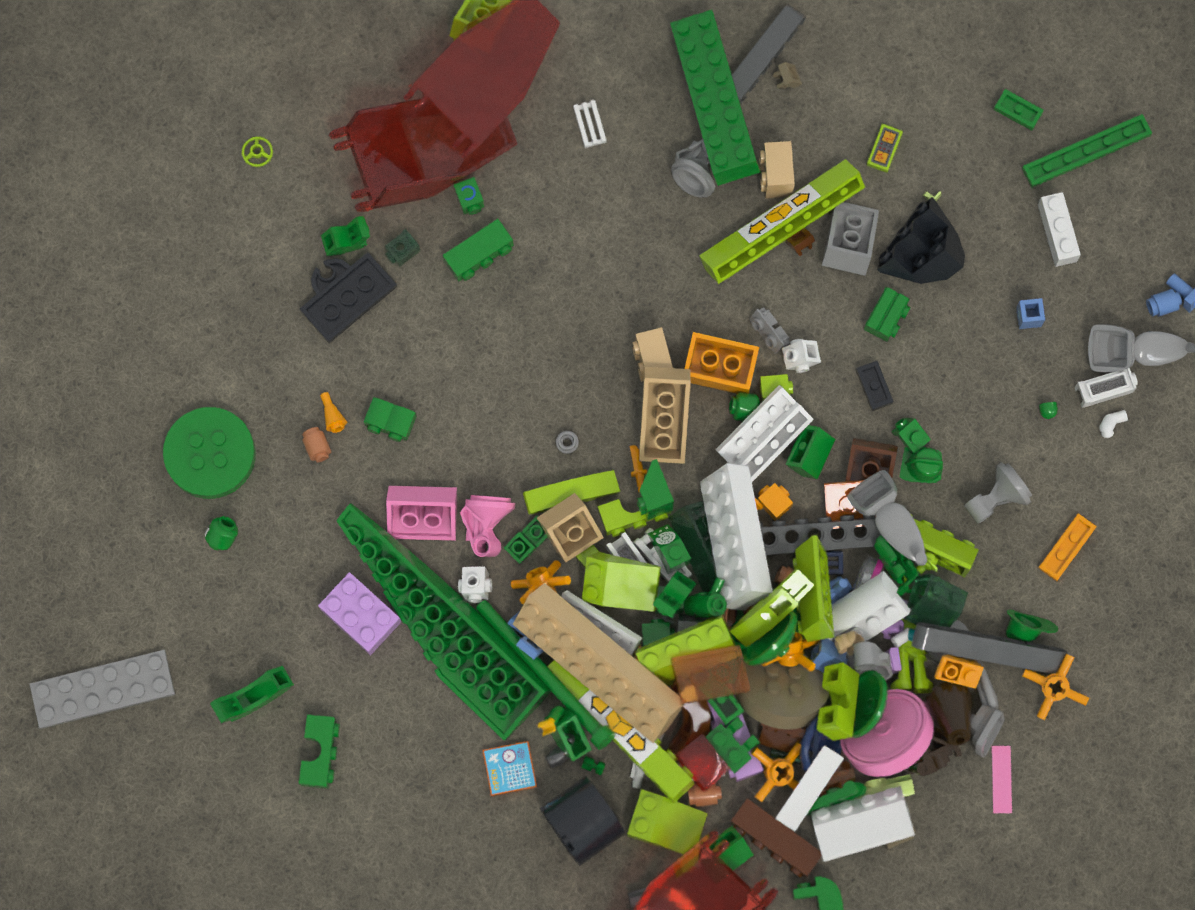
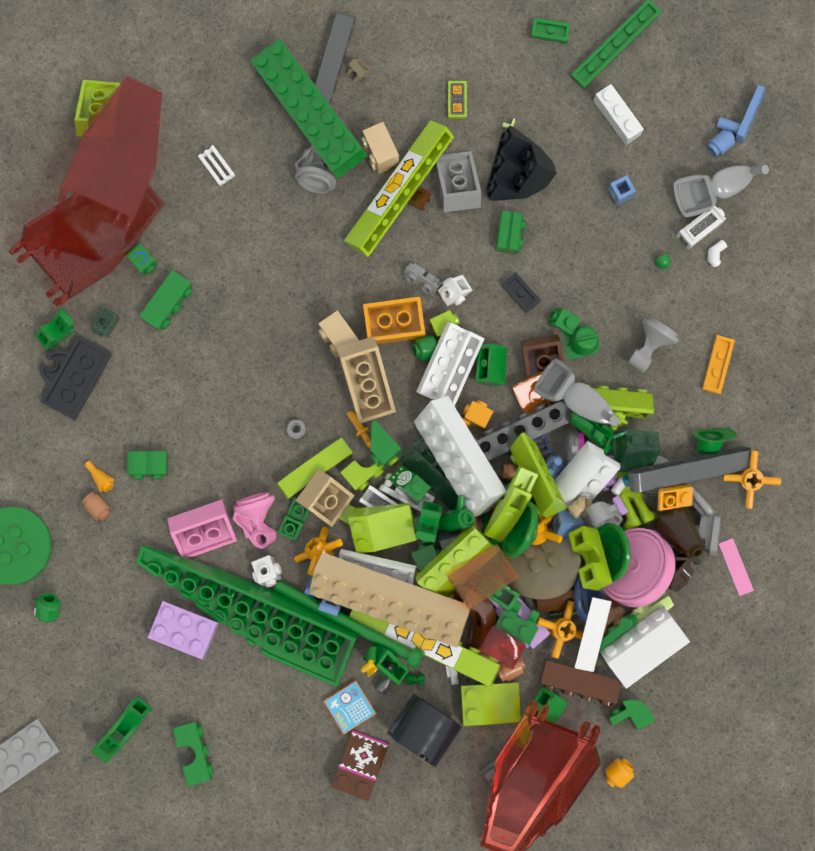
camera: 25 degrees left, 5 degrees up
(496, 835) = (360, 765): none -> reddish brown slope

